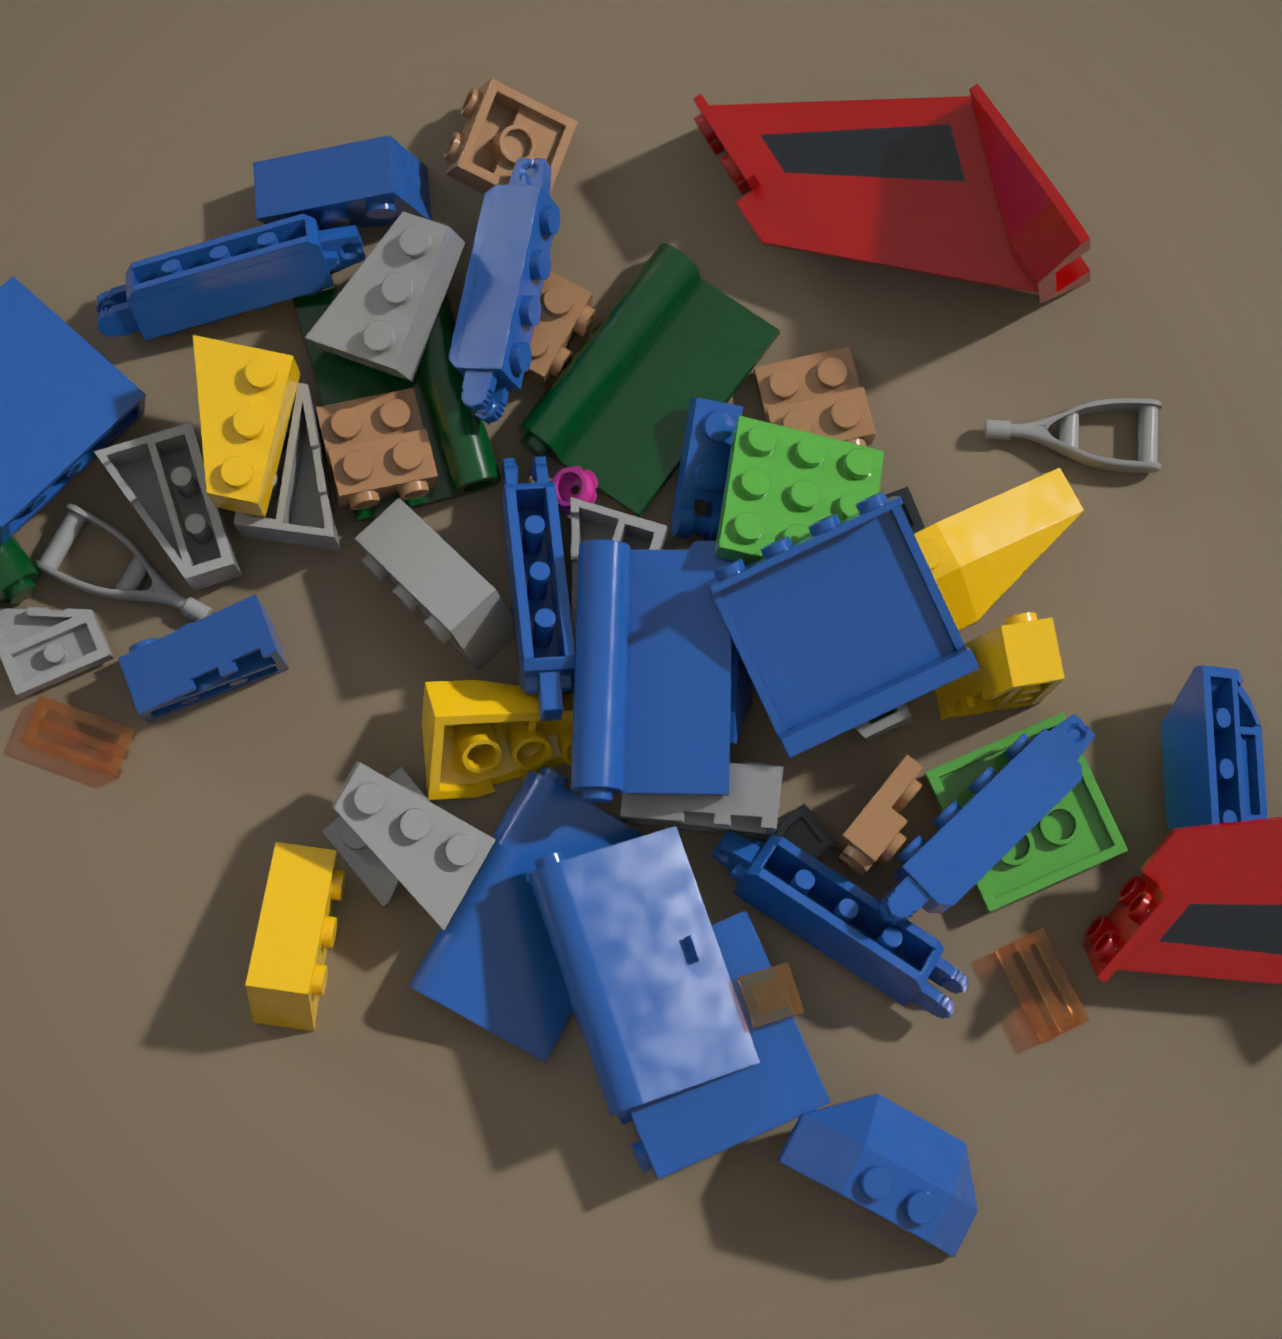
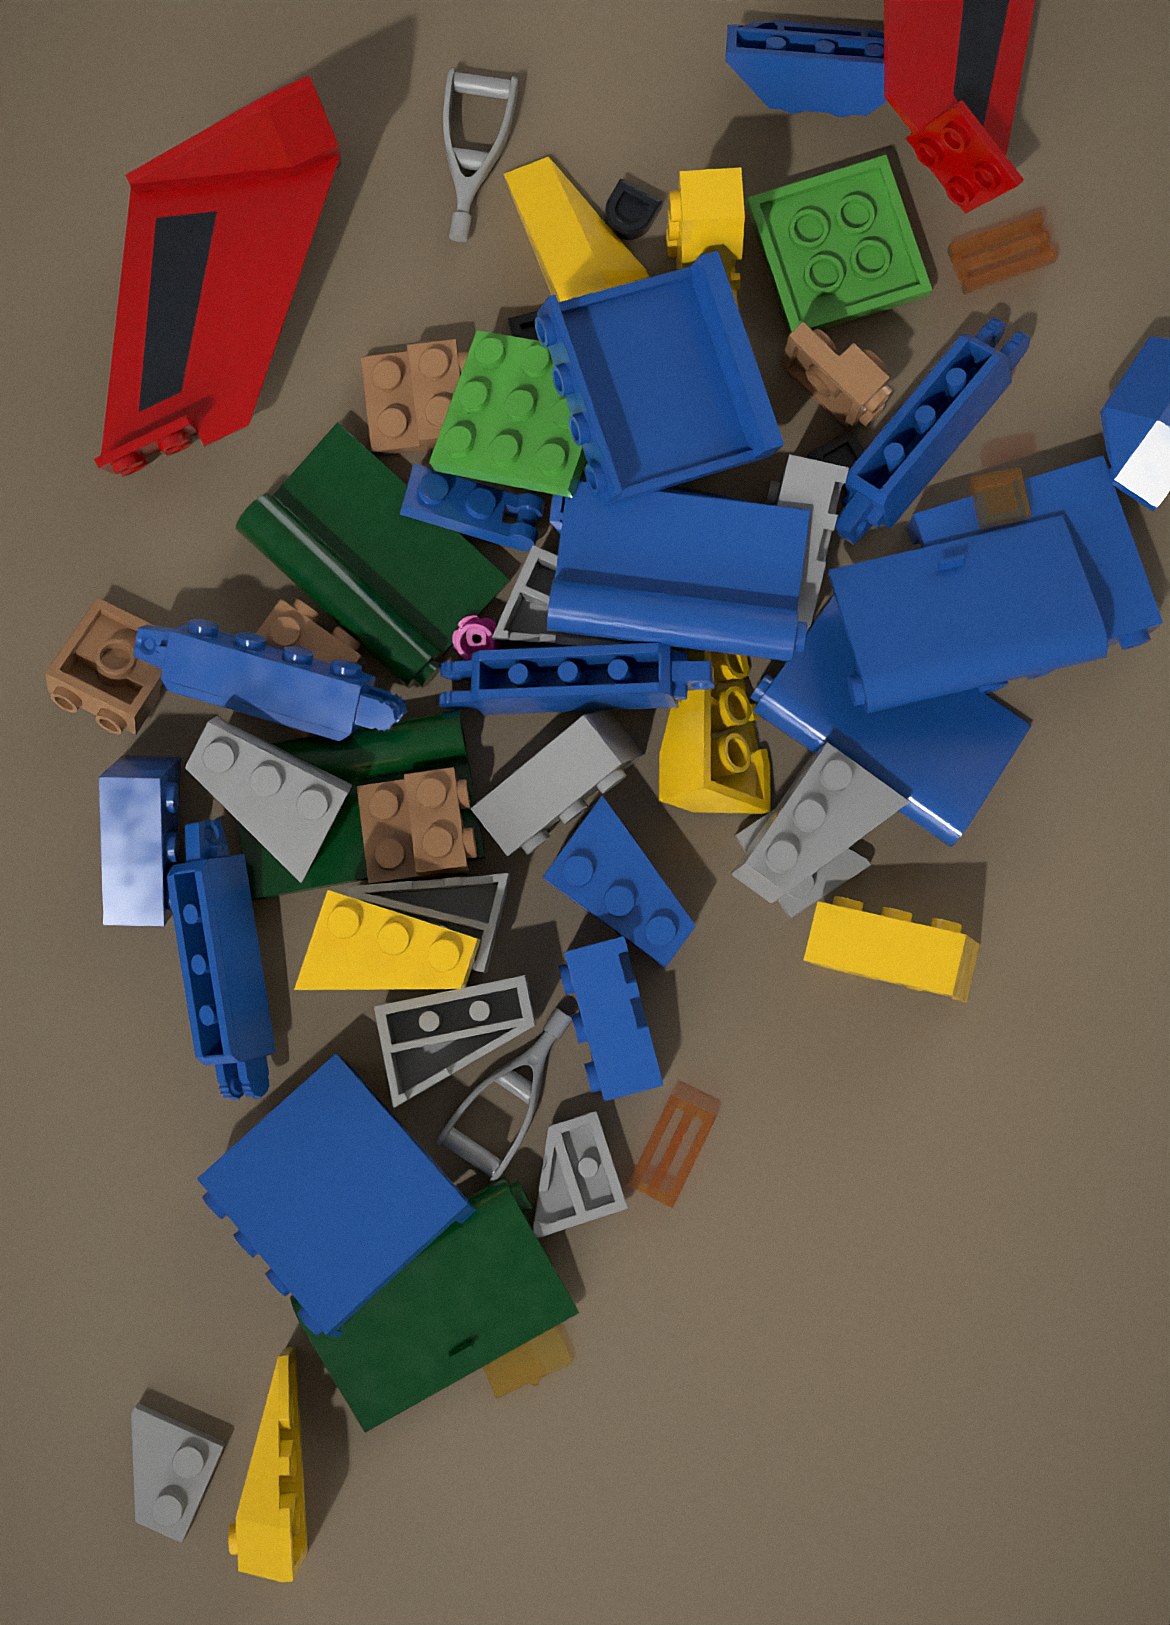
camera: 75 degrees left, 5 degrees up
(335, 654) = (619, 886): none -> blue wedge
(989, 823) = (855, 273): blue hinge -> none
(1037, 594) = (631, 211): none -> black tile

